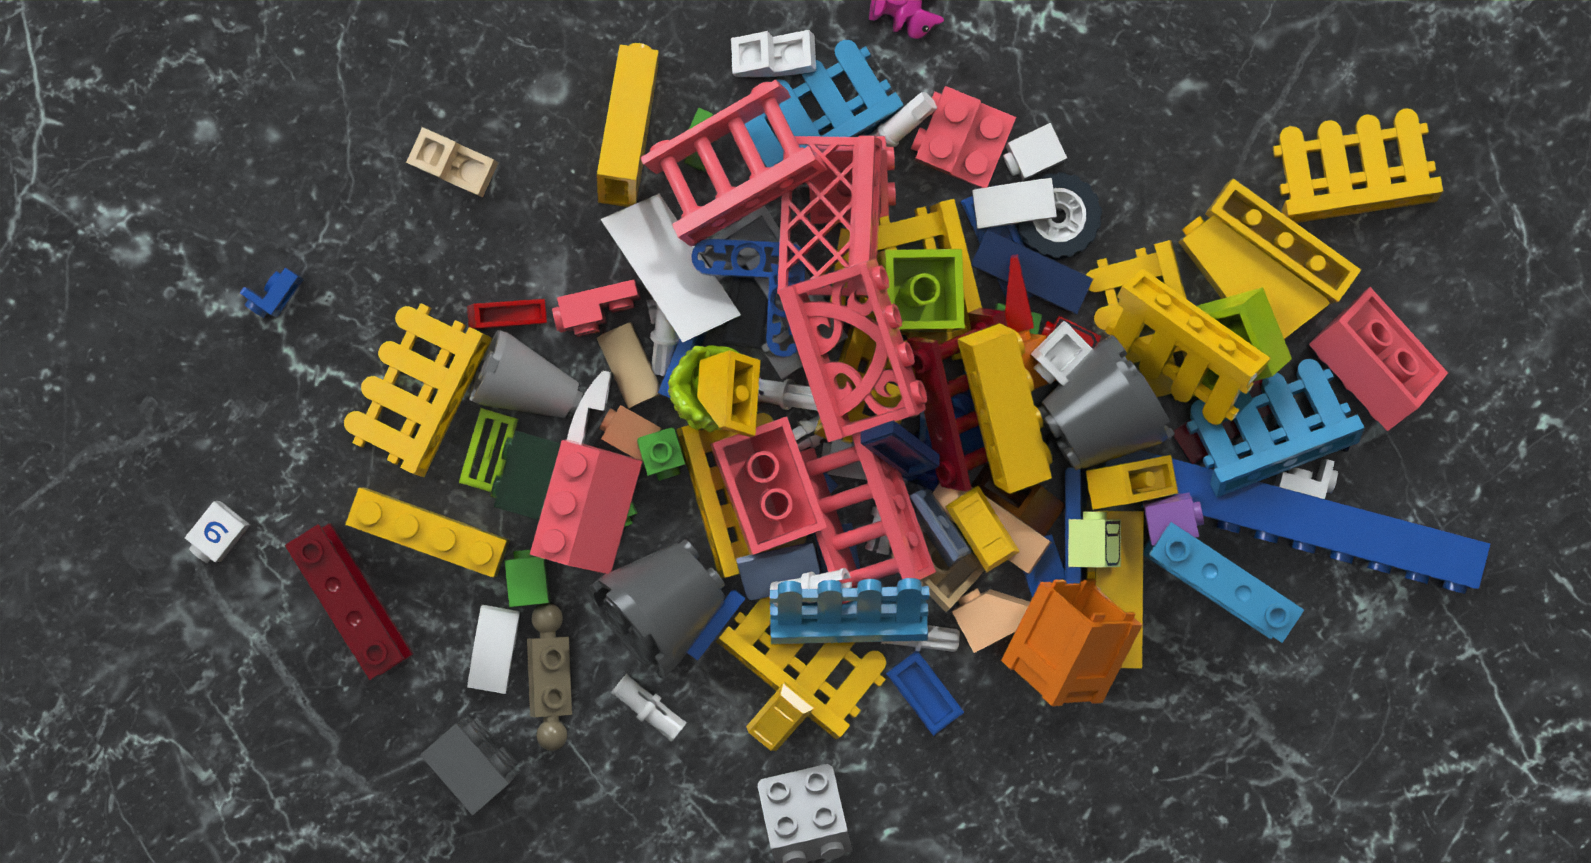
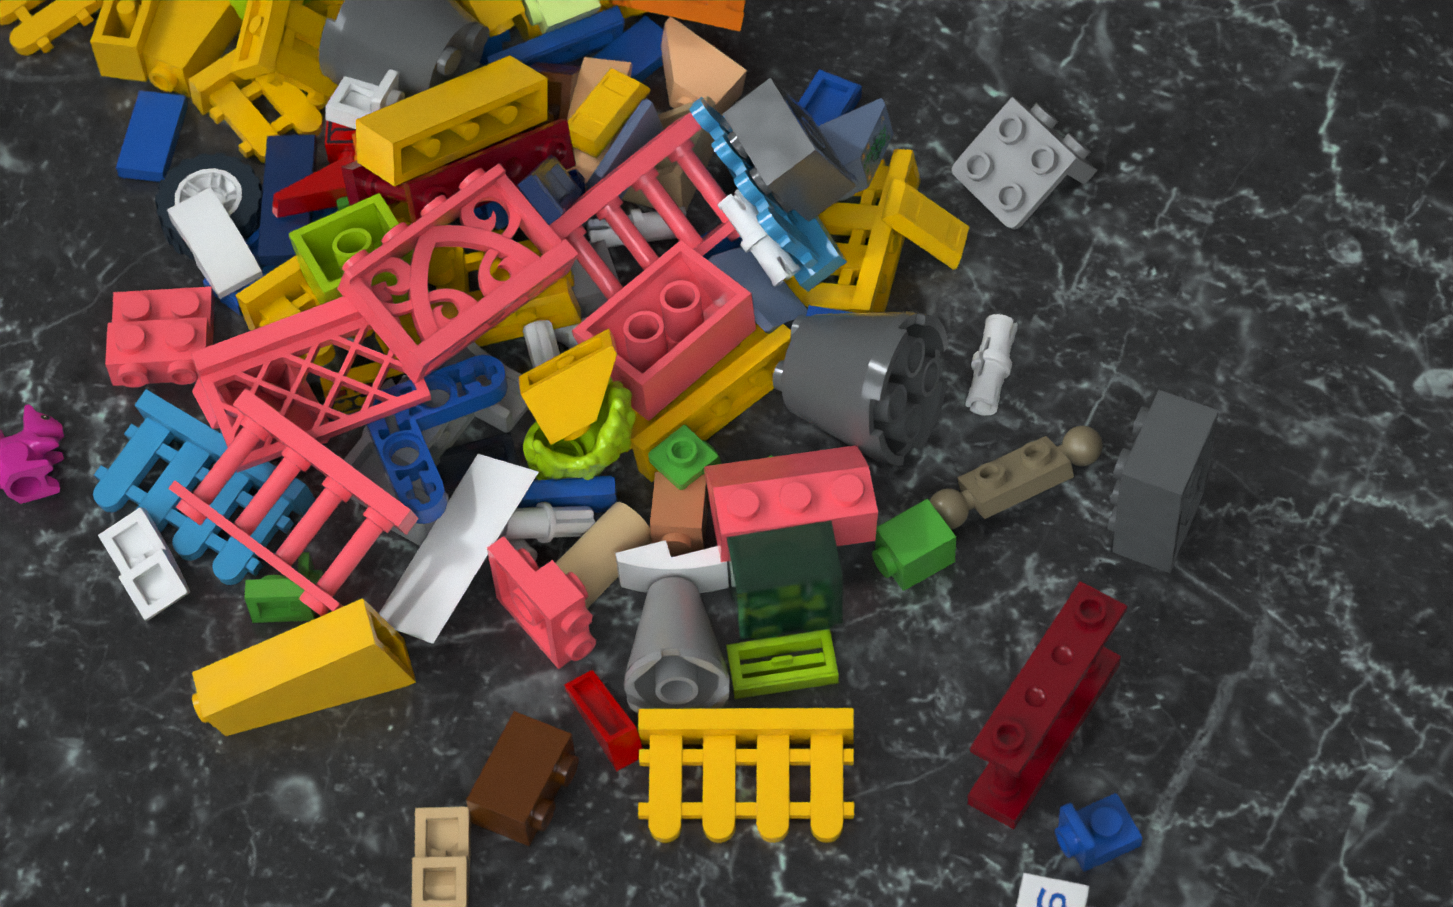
camera: 110 degrees left, 30 degrees down
(264, 593) = (1097, 832): none -> blue bracket
(427, 532) = (917, 675): yellow brick -> none
(480, 239) = (522, 779): none -> reddish brown brick
(493, 649) = (1012, 547): white slope -> none
(851, 634) = (787, 151): none -> dark grey brick
(862, 686) = (860, 141): none -> sand blue slope
(906, 119) = (163, 384): white piece -> none
(1034, 153) = (146, 253): white brick -> none
(1150, 199) = (152, 136): none -> blue tile

